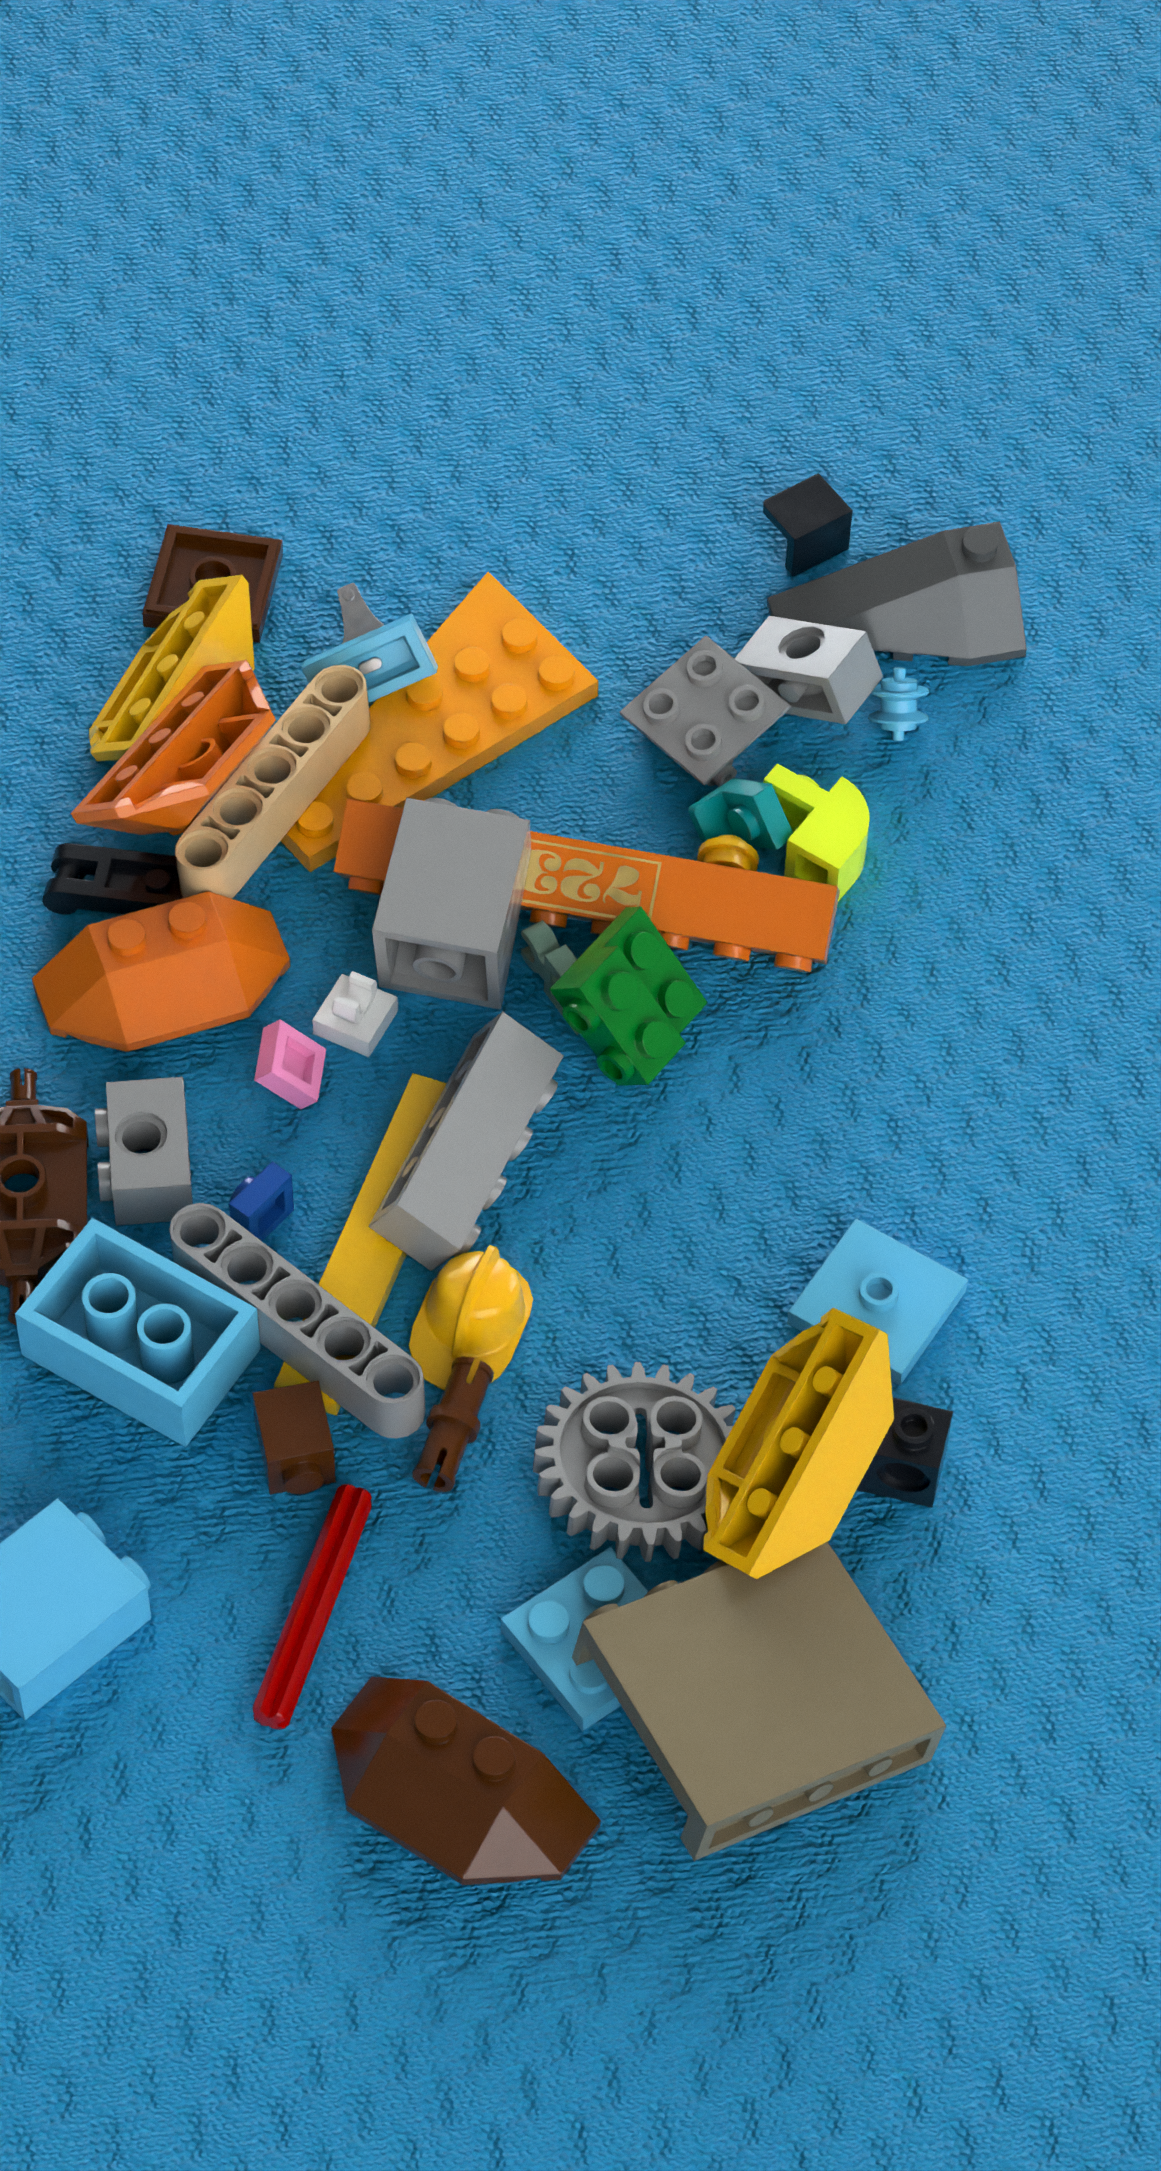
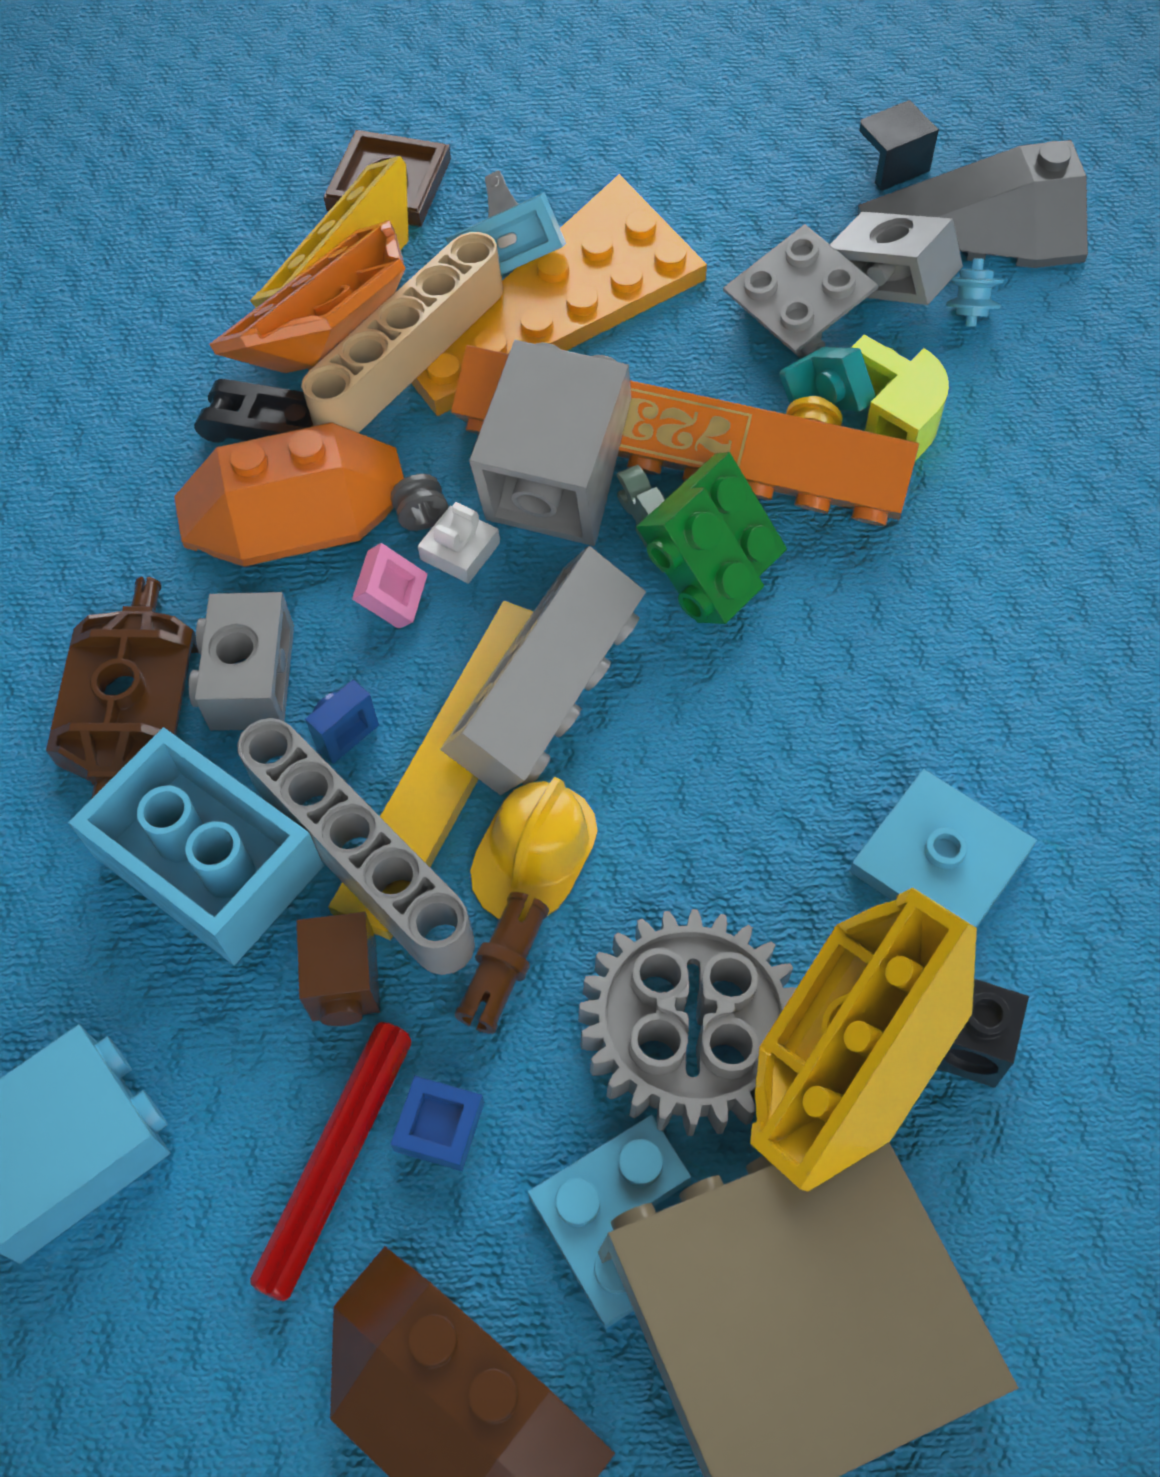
camera: 10 degrees right, 5 degrees up
(308, 972) = (418, 501): none -> dark grey bush
(409, 1568) = (437, 1123): none -> blue plate

